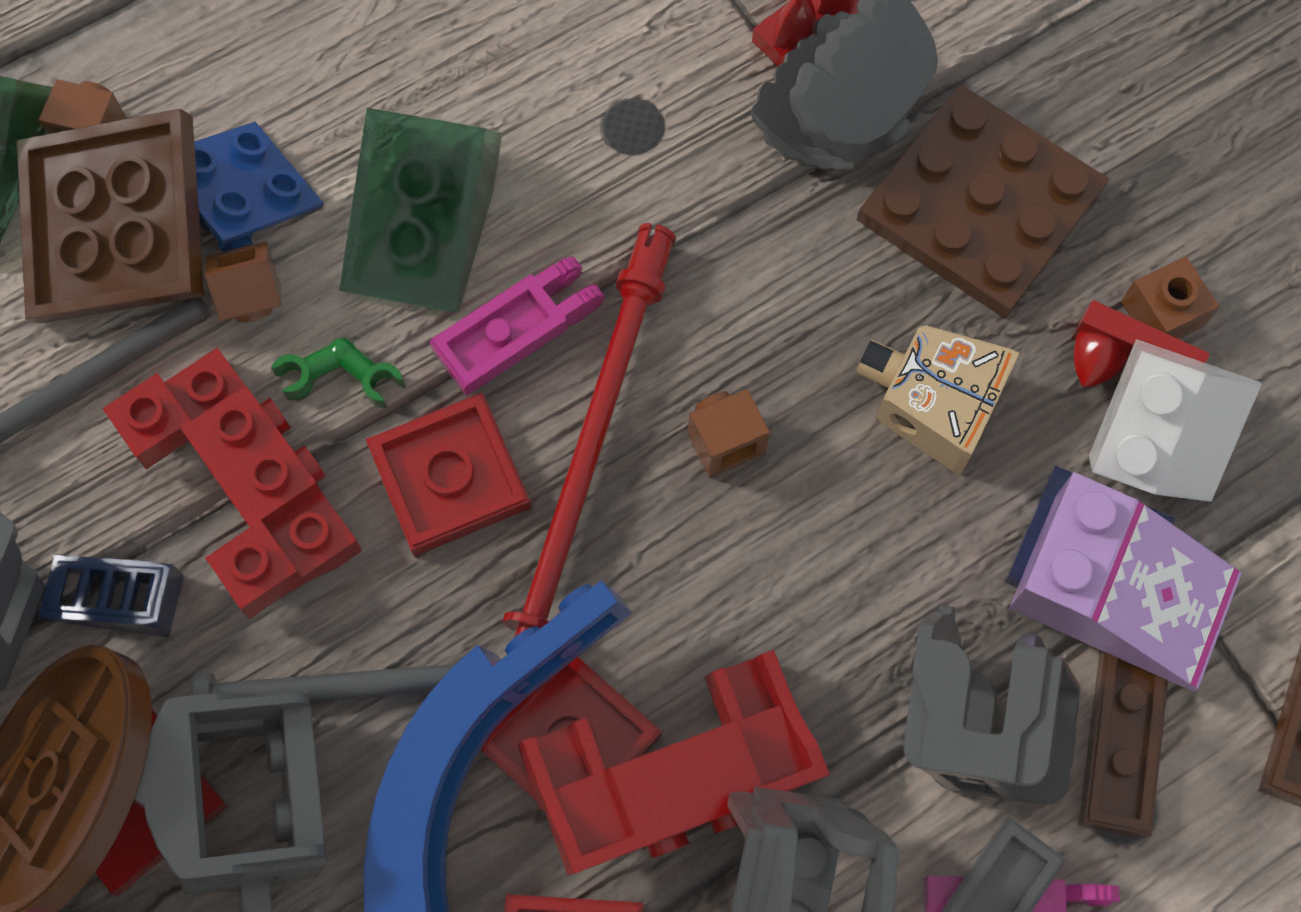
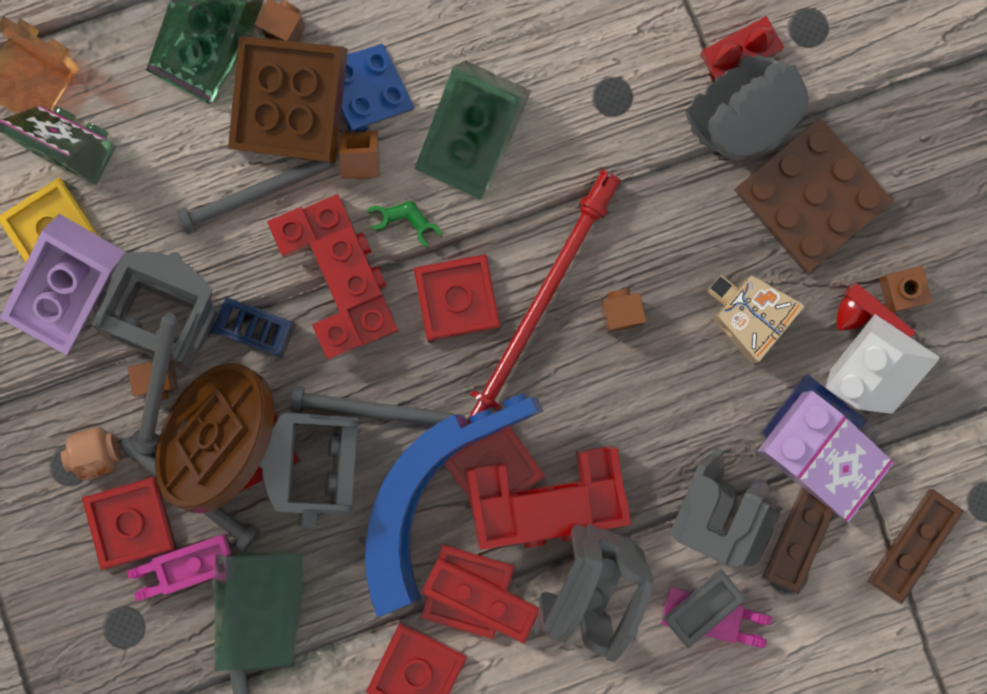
camera: 15 degrees right, 15 degrees up
(513, 325) = (512, 216): dark pink hinge -> none

